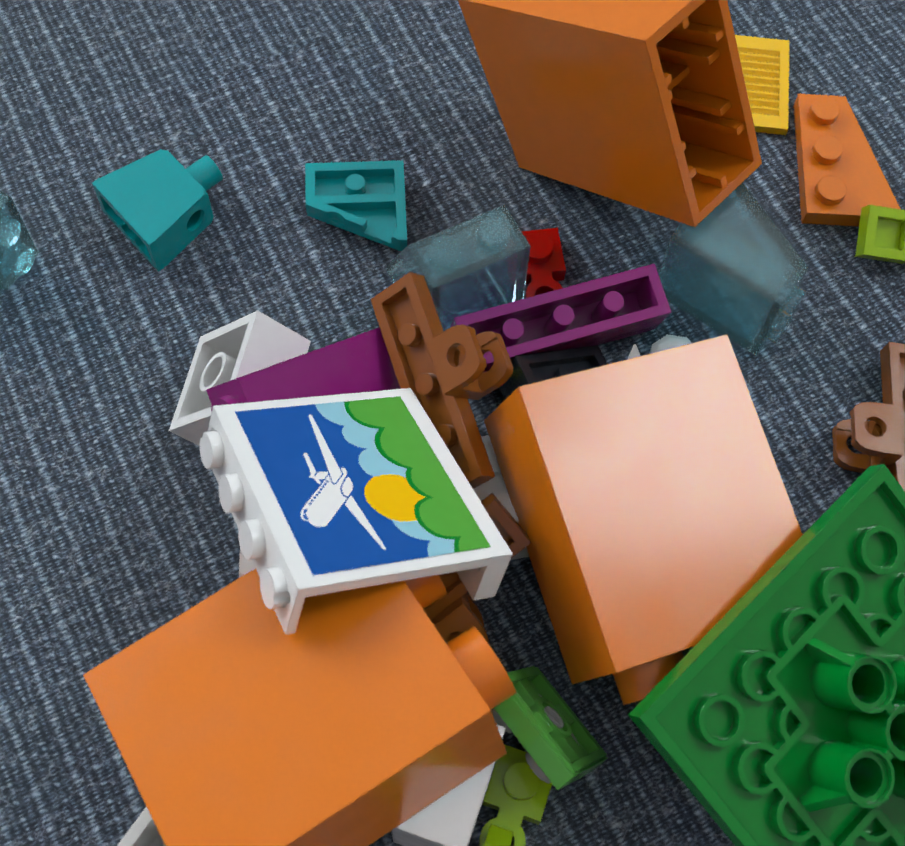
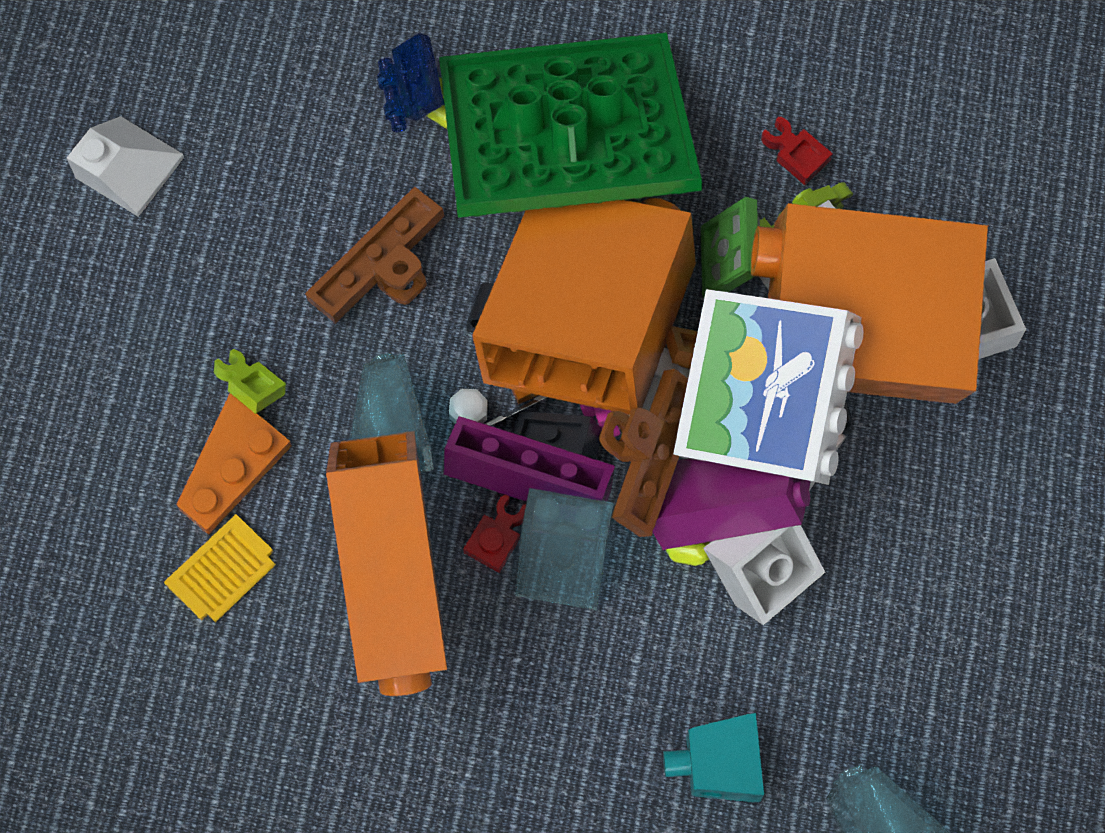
camera: 140 degrees left, 5 degrees up
(360, 198) = (577, 667): teal wing -> none

